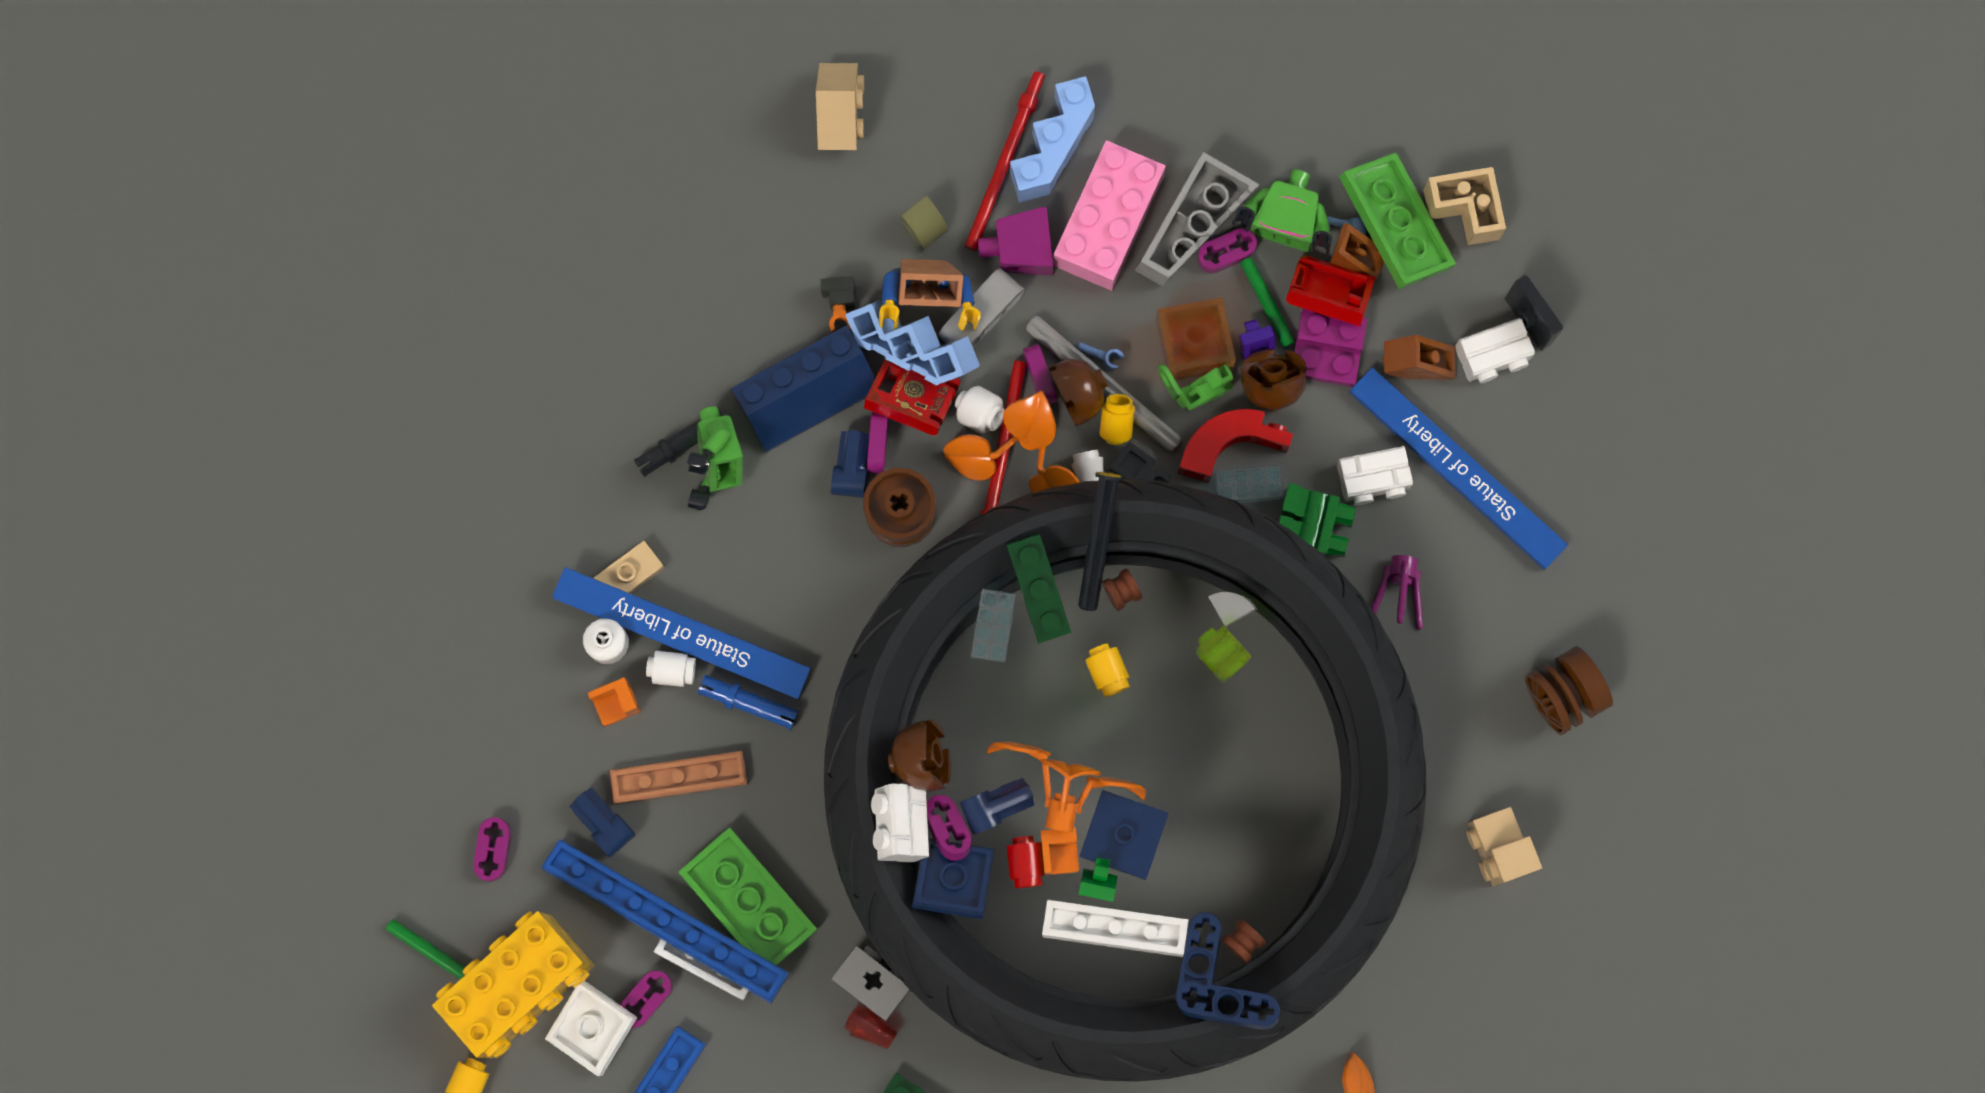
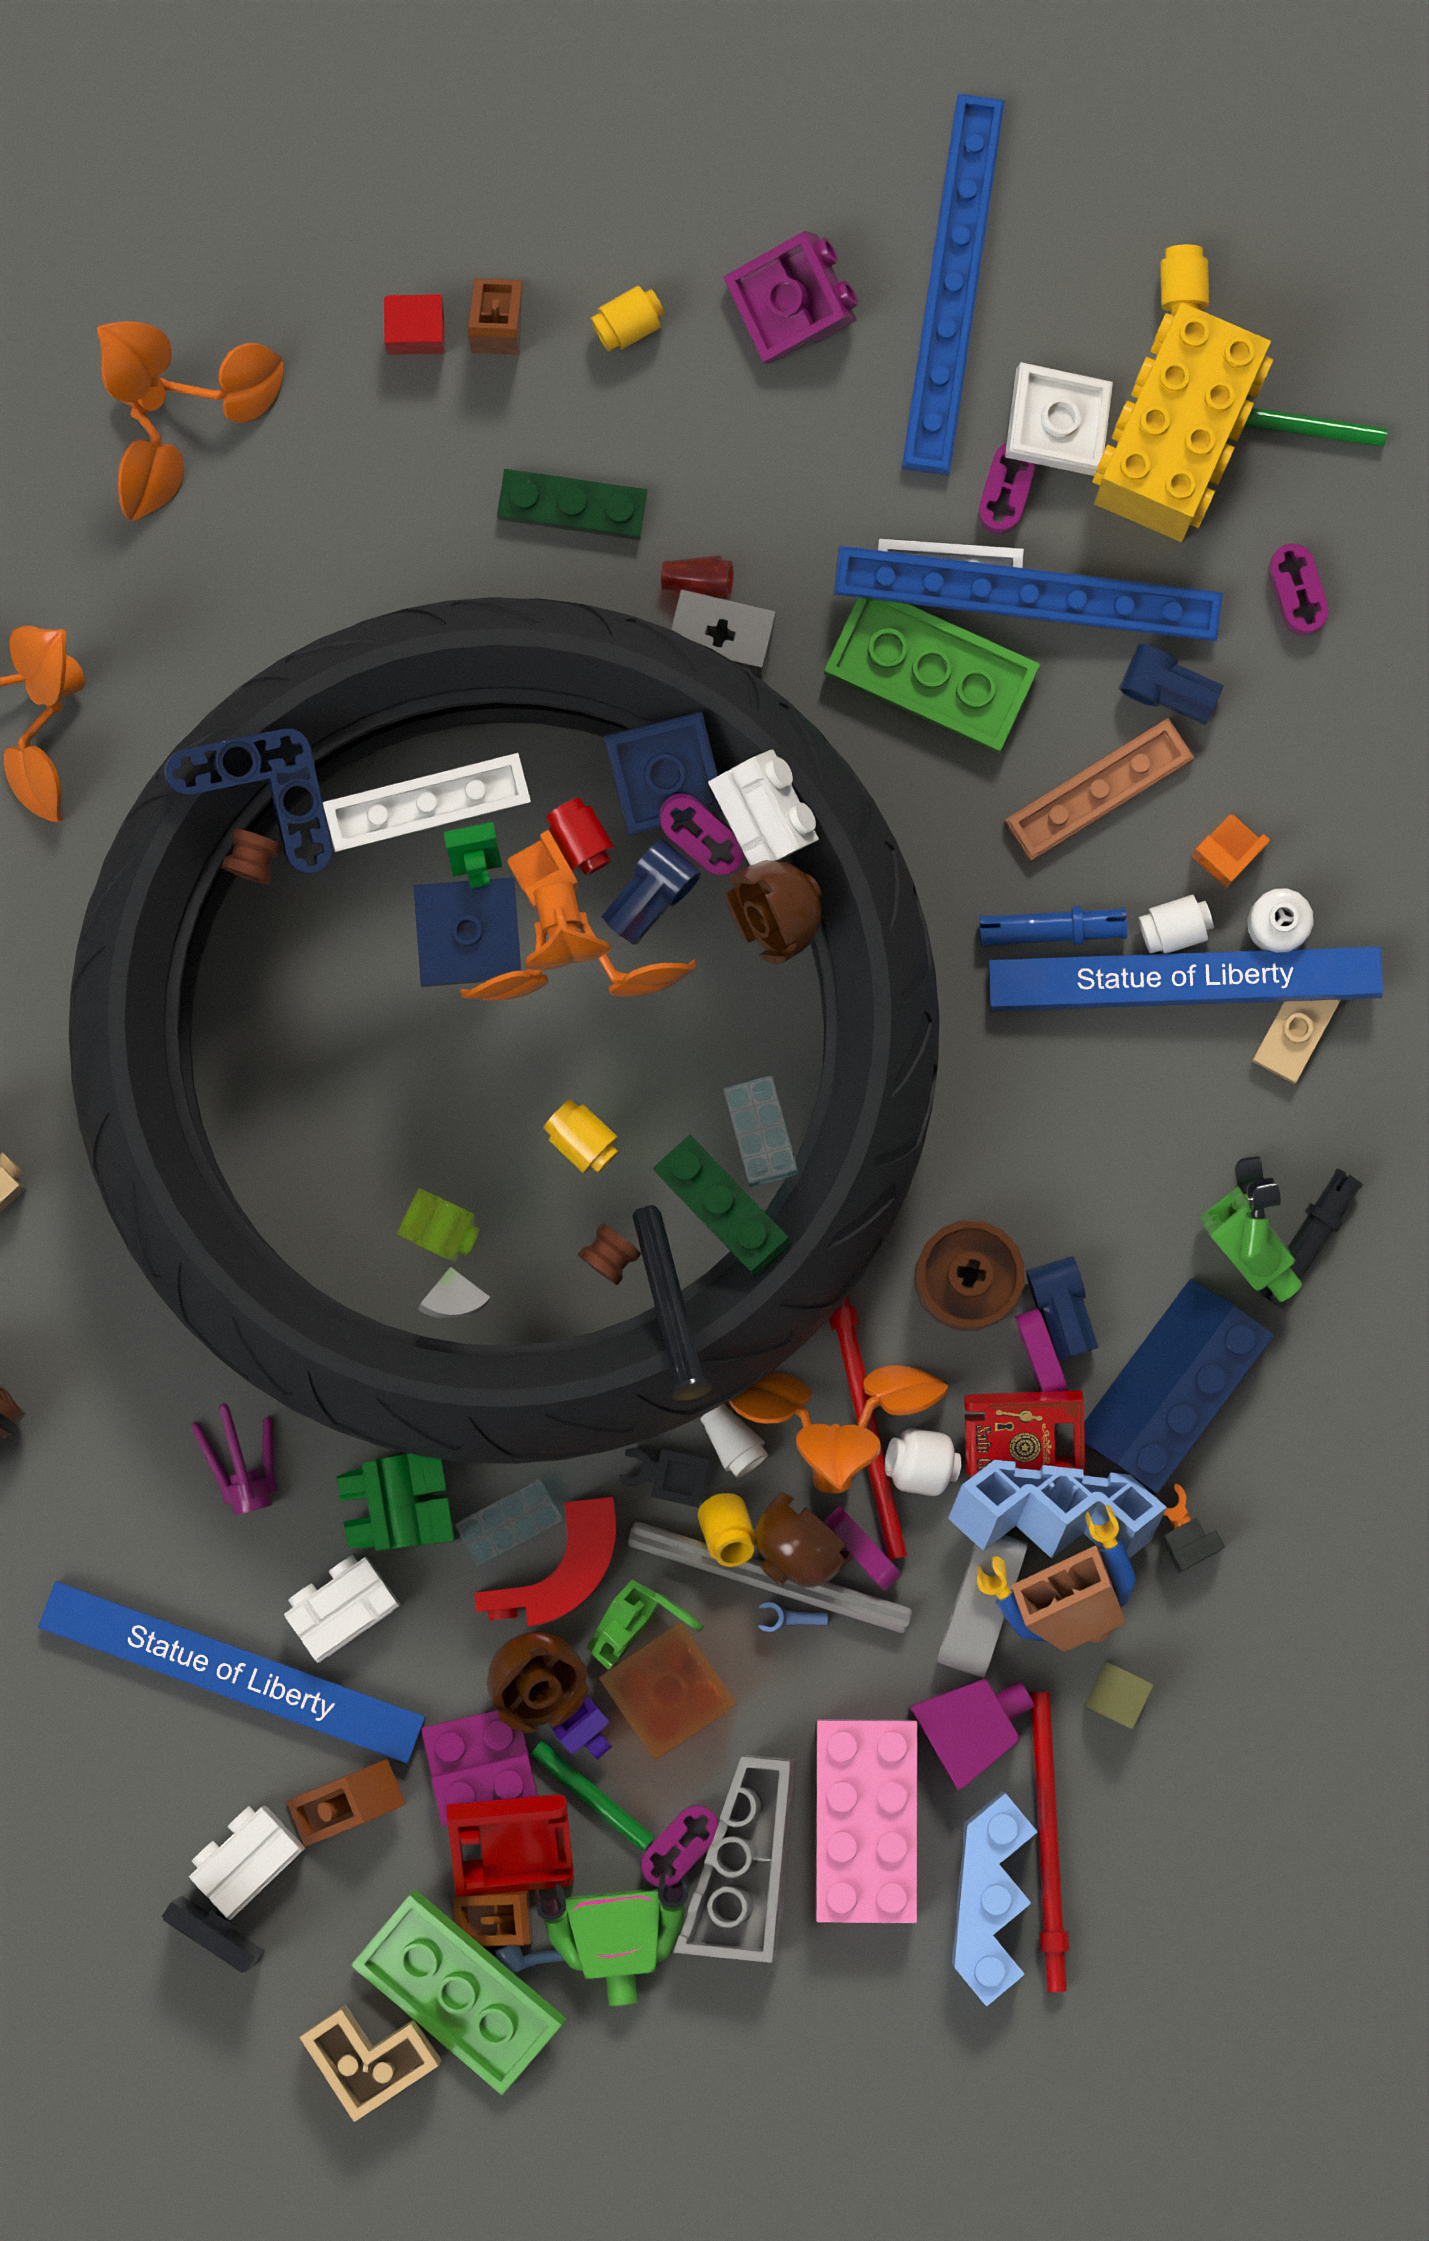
camera: 155 degrees right, 5 degrees up
(837, 100) = (1316, 1813): tan brick -> none

